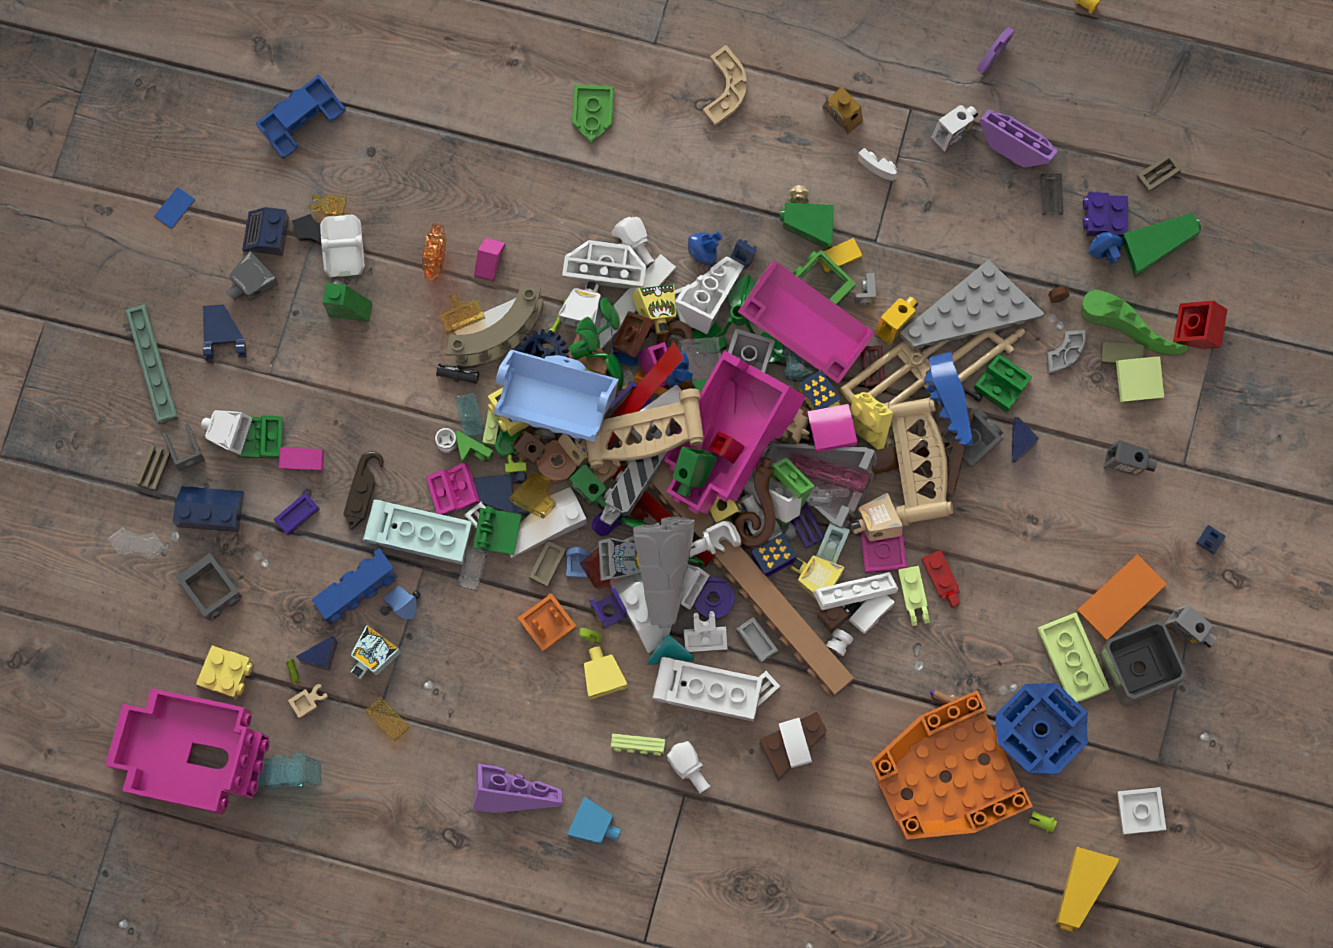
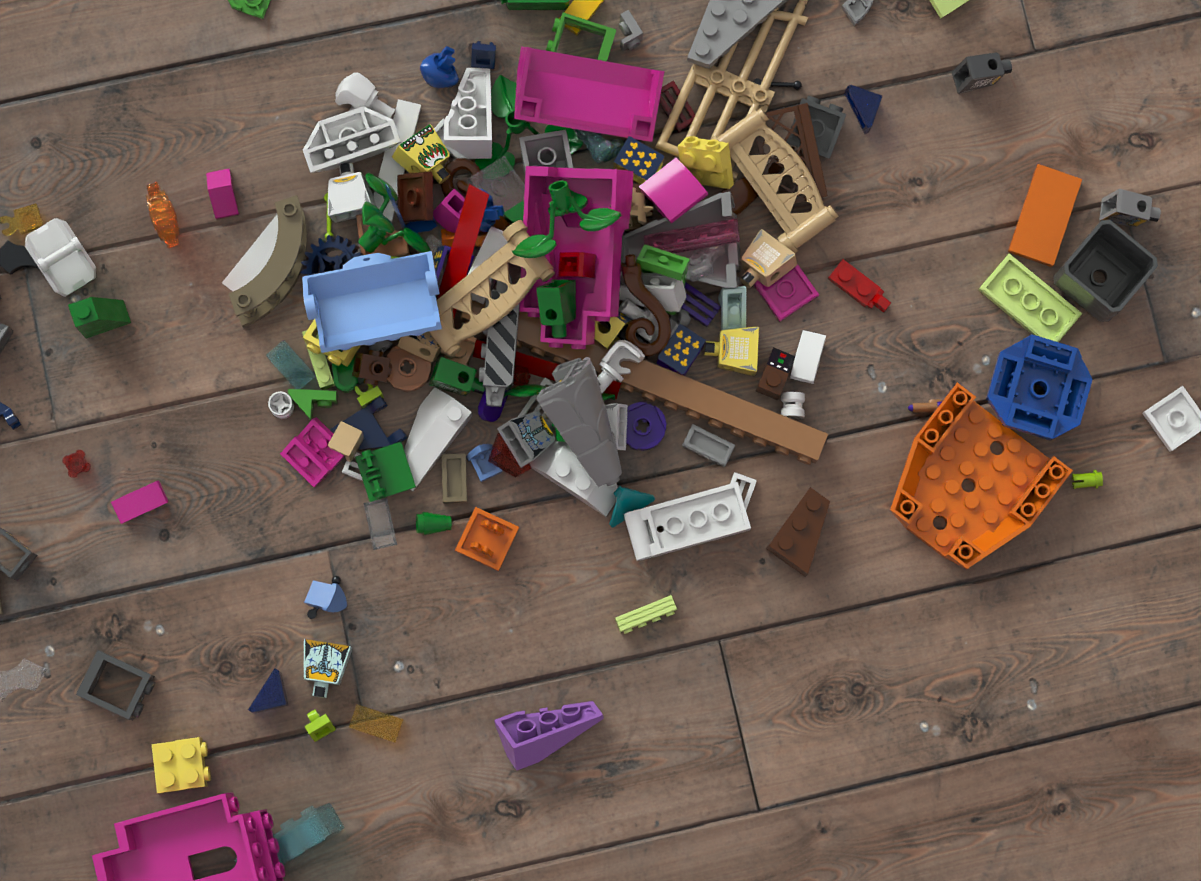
camera: 40 degrees left, 5 degrees up
(208, 509) = (69, 604): dark blue slope -> none
(227, 429) = (44, 511): white torso -> none
(263, 438) = (82, 501): green slope -> none
(266, 401) = (79, 457): none -> clear red plate
(293, 670) = (250, 725): lime piece -> none
(296, 514) = (165, 561): dark purple tile -> none
(305, 703) = (282, 752): tan plate -> none
(343, 698) = (319, 725): none -> lime tile
(355, 587) = (270, 606): blue wedge -> none
(361, 490) = (219, 502): dark brown plate -> none
(418, 532) = (303, 515): light aqua hinge -> none
(457, 373) = (255, 329): black pin -> none
(461, 314) = (225, 265): clear yellow plate -> none
(480, 492) = (346, 440): none -> tan panel
(512, 589) = (432, 523): none -> green cone
(534, 495) = (404, 416): clear yellow tile -> none
(590, 635) = (538, 529): lime tile -> none
(593, 824) = (645, 719): dark azure torso -> none
(602, 674) = (572, 562): light yellow torso -> none
(612, 600) = (547, 481): dark purple piece -> none
(686, 764) = (707, 609): white piece -> none
(705, 635) = (655, 468): white plate -> none
(734, 392) = (565, 202): none -> green plant
(795, 742) = (808, 530): white slope -> none
(855, 591) = (782, 345): white tile -> none
(896, 319) = (675, 46): yellow torso -> none
(913, 593) = (839, 317): yellowish green hinge -> none
(948, 390) = (772, 92): blue animal -> none
(1002, 382) = (814, 57): green slope -> none
(1083, 885) = (1160, 523): yellow slope -> none
(1210, 539) = (1100, 112): dark blue tile -> none

